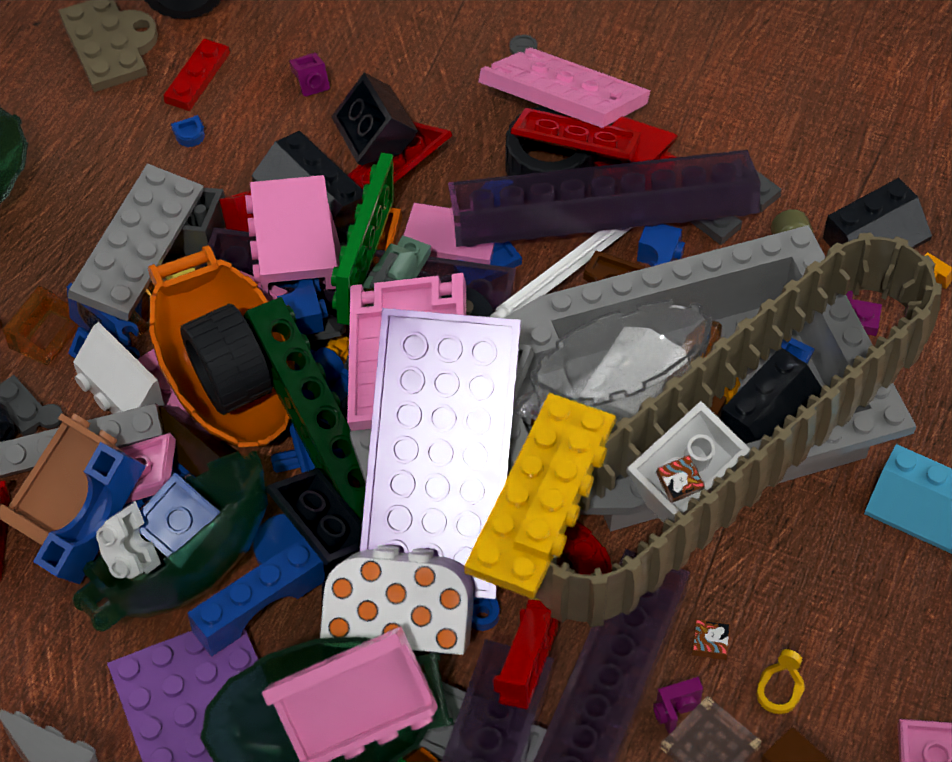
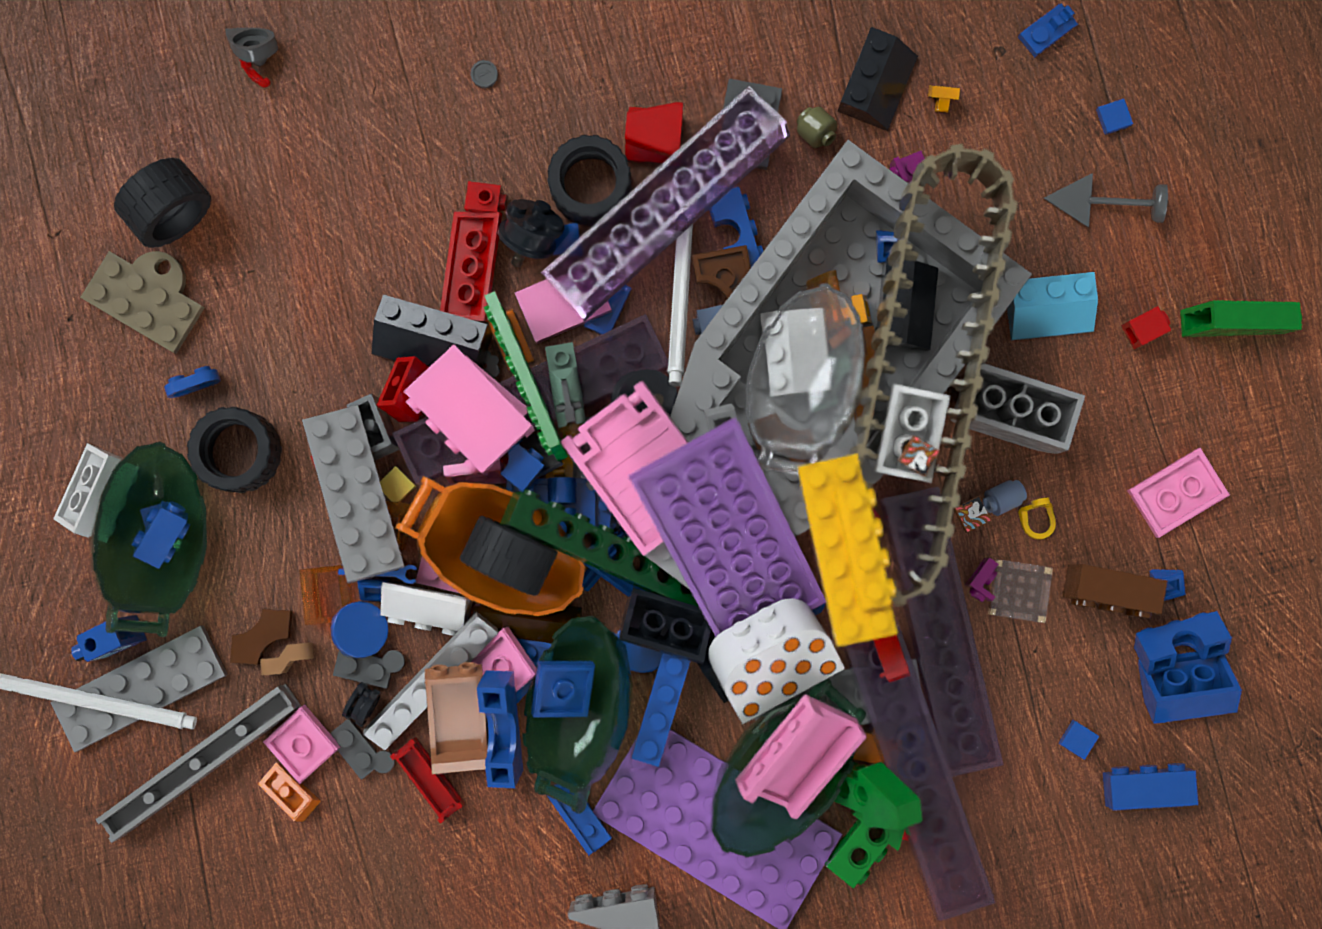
camera: 30 degrees left, 30 degrees up
(44, 366) = (359, 629): none -> blue tile
(67, 146) = (202, 442): none -> black tyre
(86, 112) = (182, 385): none -> blue plate
(92, 663) = (585, 826): none -> blue hinge
(124, 547) = (549, 737): white cylinder -> none
(189, 131) = (286, 342): blue tile -> none
(196, 74) = (246, 282): red plate -> none
(311, 74) = (337, 221): magenta bracket -> none
(373, 121) = (430, 241): black slope -> none
(448, 117) = (485, 198): none -> red brick
(465, 155) = (530, 230): none -> black wheel
(565, 87) = (558, 109): bright pink door -> none
(576, 134) = (611, 164): red slope -> none
(755, 639) = (1004, 497): none -> sand blue brick
(820, 548) = (1025, 411): none -> light grey brick

